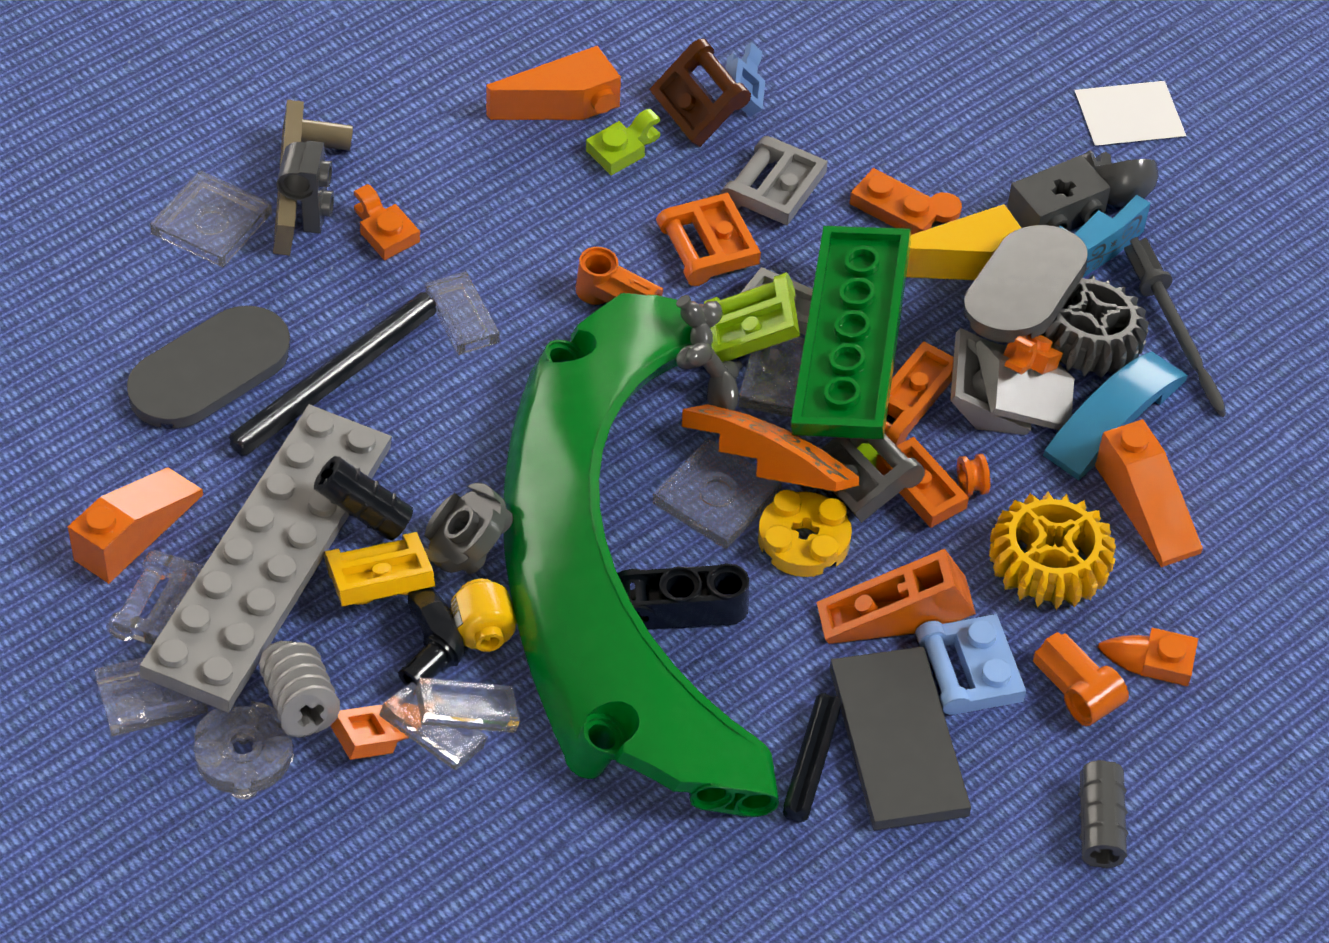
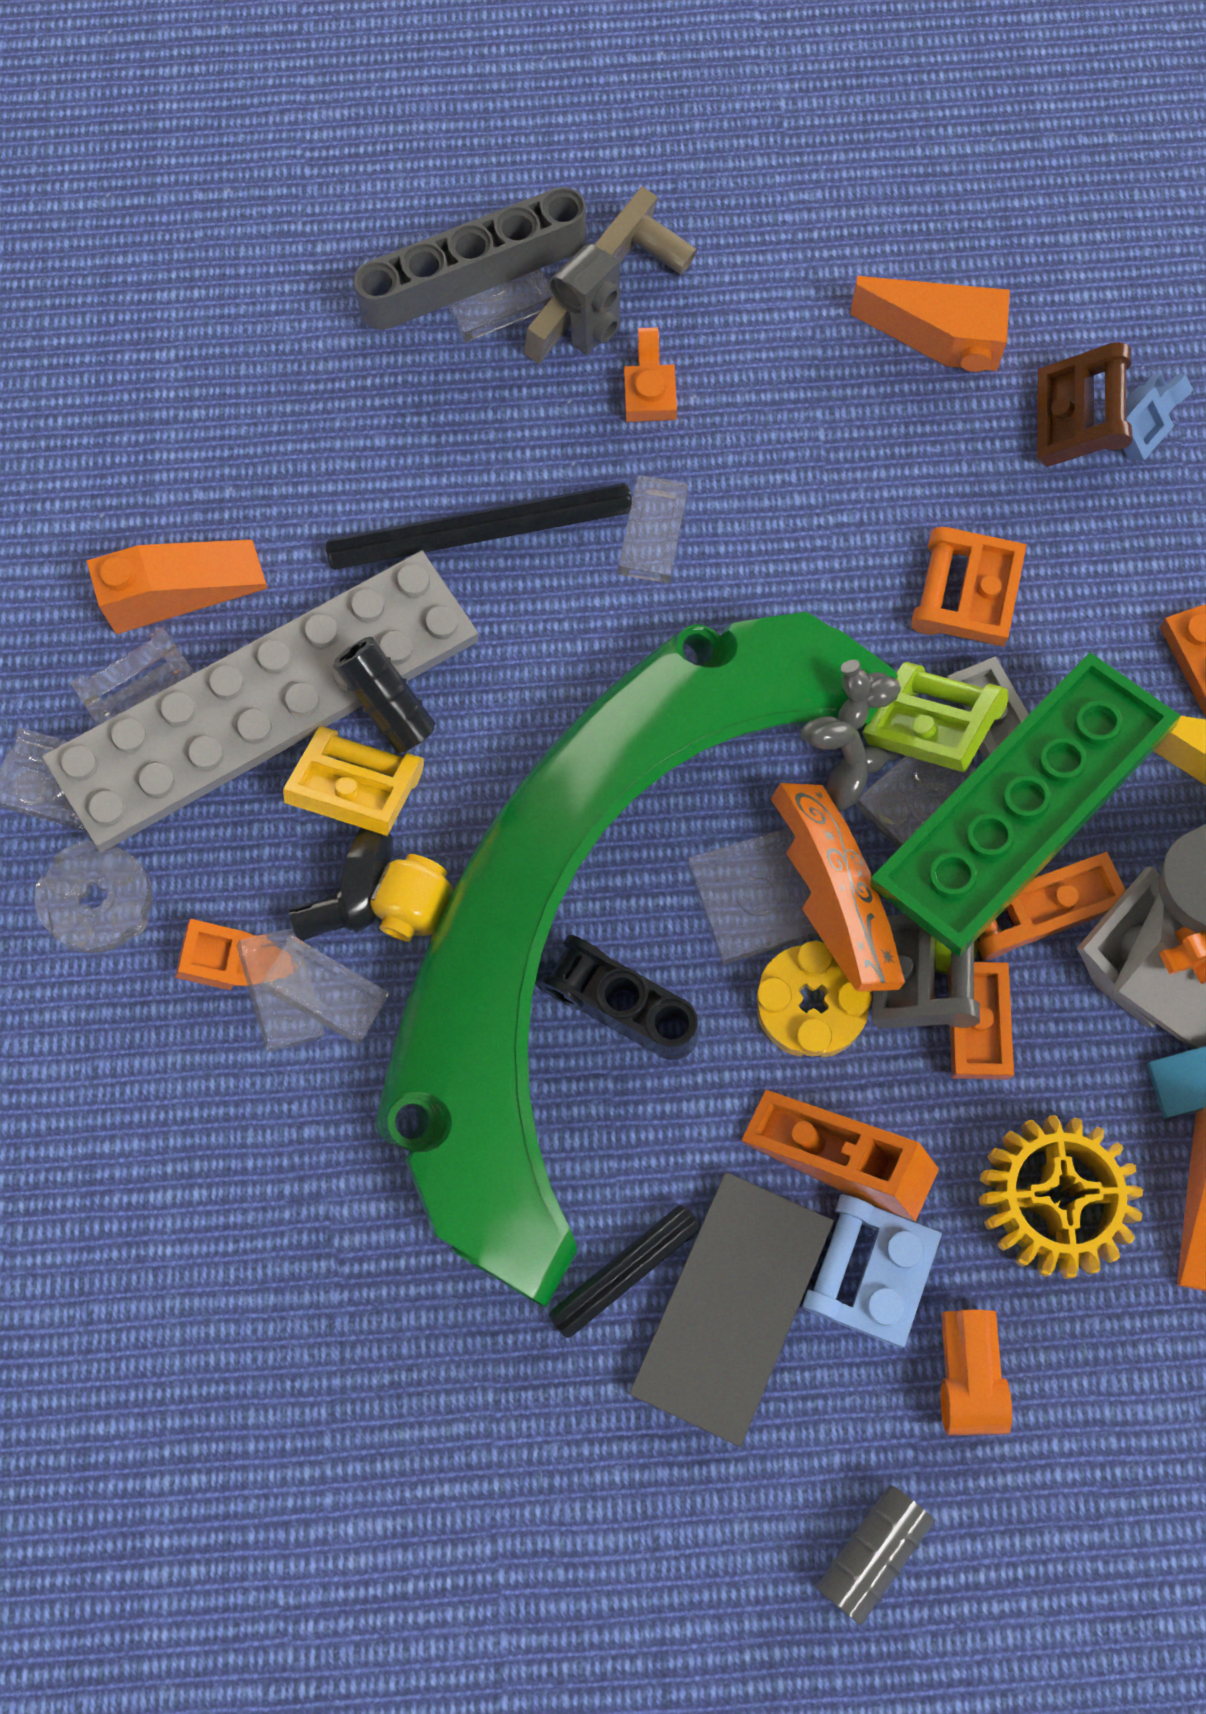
camera: 40 degrees right, 20 degrees up
(195, 203) = (471, 258): none -> dark grey beam
(208, 367) = (368, 449): dark grey tile -> none
(299, 688) = (171, 873): light grey piece -> none
(466, 529) = (461, 792): dark grey plate -> none
(603, 279) = (830, 591): orange piece -> none
(622, 146) = (958, 419): lime plate -> none
(784, 187) = (1098, 569): light grey plate -> none
(973, 474) = (1042, 1048): orange bush -> none
(1156, 656) = (1084, 1391): orange plate -> none

